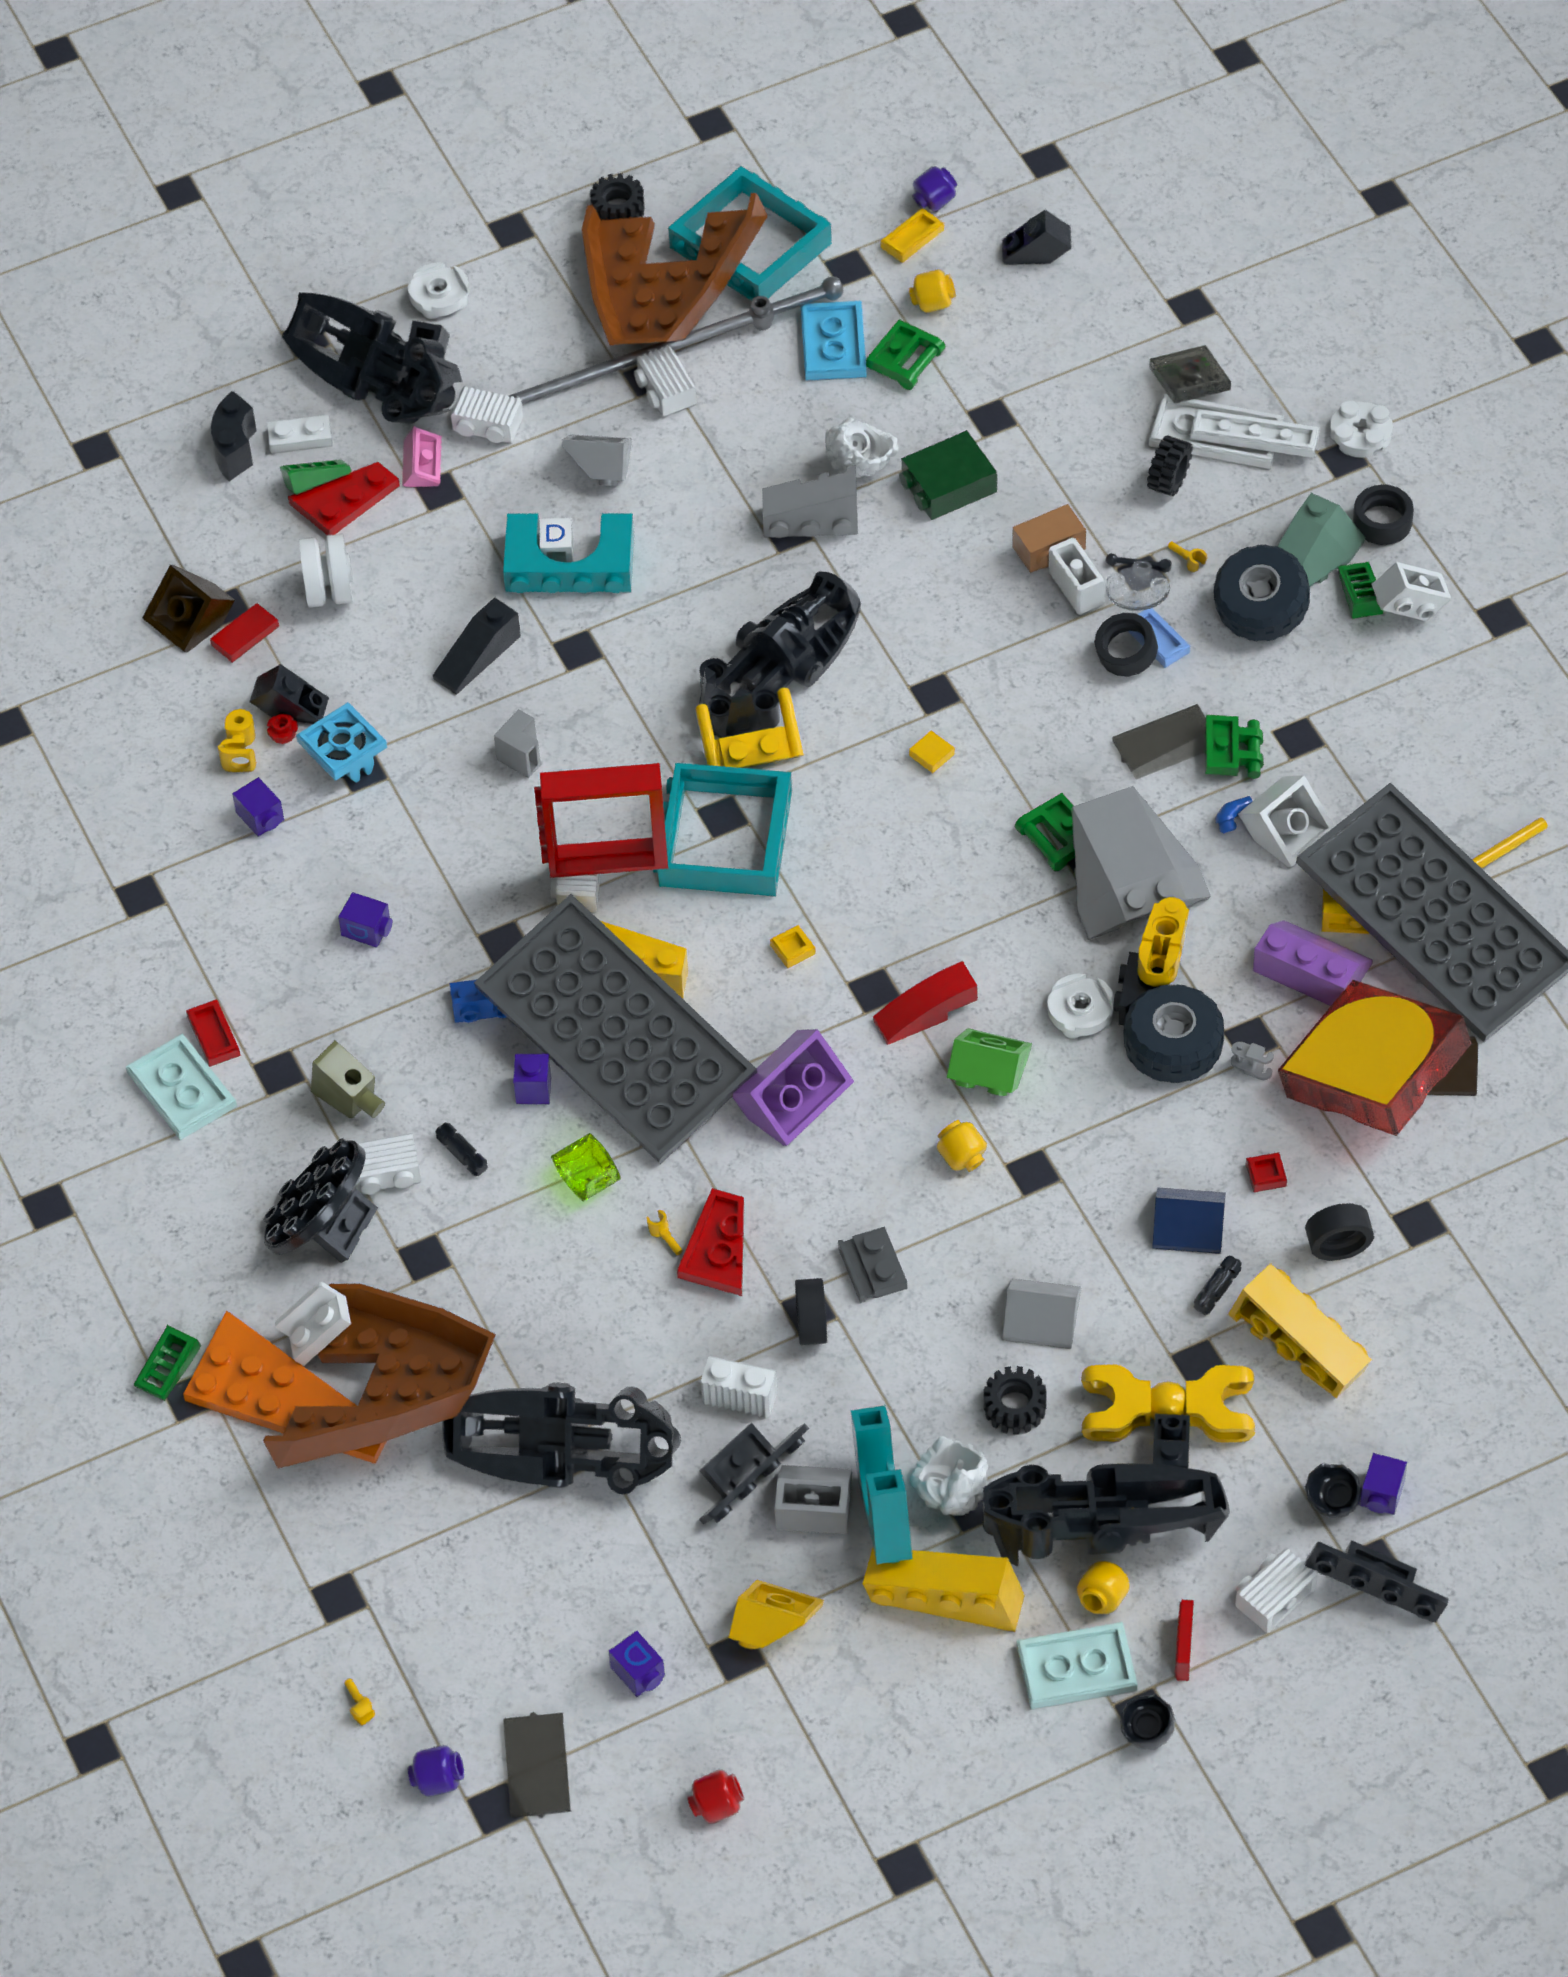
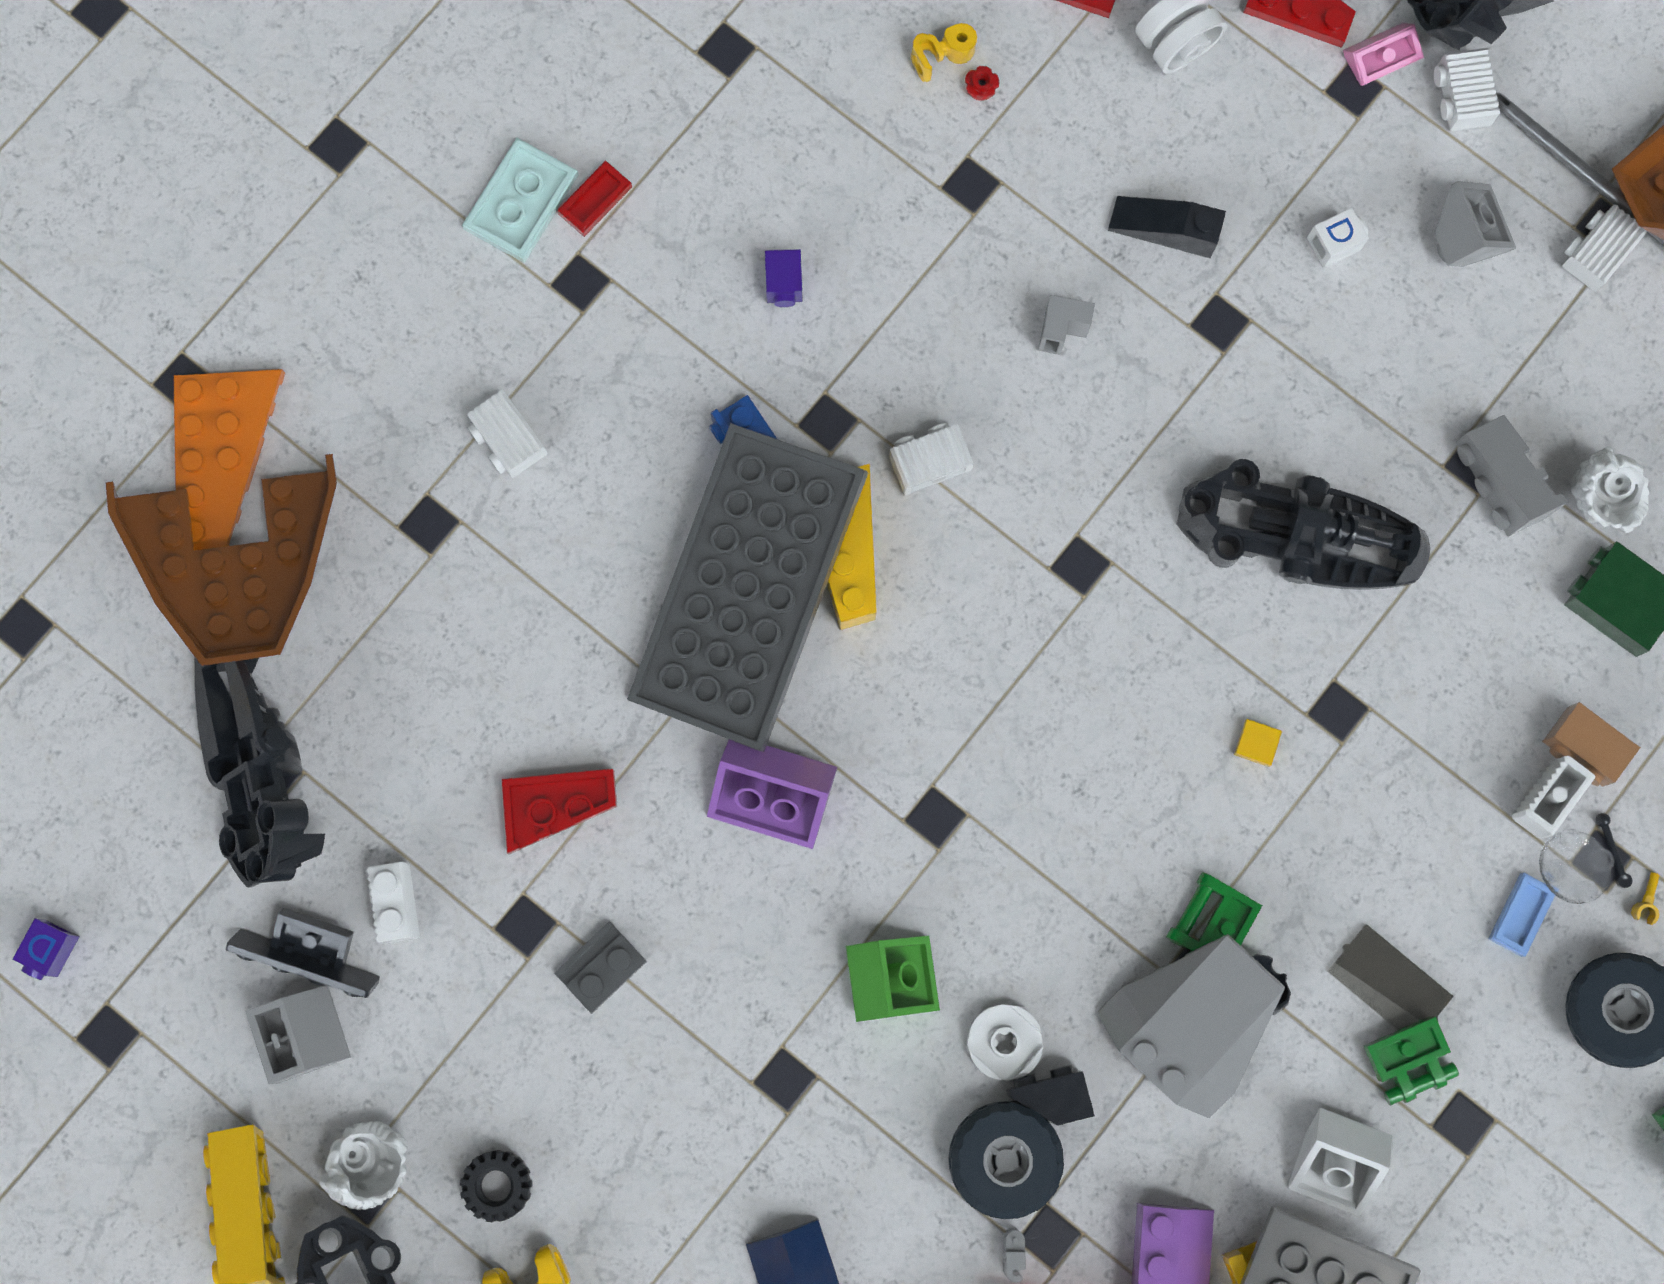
camera: 60 degrees right, 25 degrees up
(184, 1359) = (228, 344): green slope -> none
(258, 807) = (871, 108): dark purple brick -> none
(286, 693) = (1018, 72): black slope -> none
(314, 1321) = (286, 464): white bracket -> none
(322, 1204) = (416, 403): black bracket -> none
(340, 744) = (980, 150): medium azure piece -> none
(344, 1082) = (575, 340): olive torso -> none
(461, 1149) = (561, 500): black axle -> none
(532, 1079) = (664, 530): dark purple brick -> none
(586, 1167) = (584, 633): clear neon green piece -> none
(601, 856) = (958, 460): red window -> none
(602, 571) = (1327, 303): teal arch -> none
(661, 1229) = (549, 744): yellow hand -> none
(735, 782) = (1052, 515): teal window -> none
(753, 747) = (1173, 558): yellow plate -> none
(769, 1613) = (152, 1058): yellow slope -> none
(792, 946) = (948, 711): yellow tile -> none
(811, 1311) = (502, 937): black tyre -> none
(881, 1485) = (268, 1133): teal arch -> none
(927, 1003) = (931, 882): red slope -> none
(961, 1146) = (773, 997): yellow head -> none
(1041, 1313) = (617, 1165): light grey slope -> none
(1122, 623) = (1494, 861): black tyre -> none
(1163, 942) = (1135, 1102): yellow piece -> none
(1229, 811) = (1325, 1093): blue arm -> none

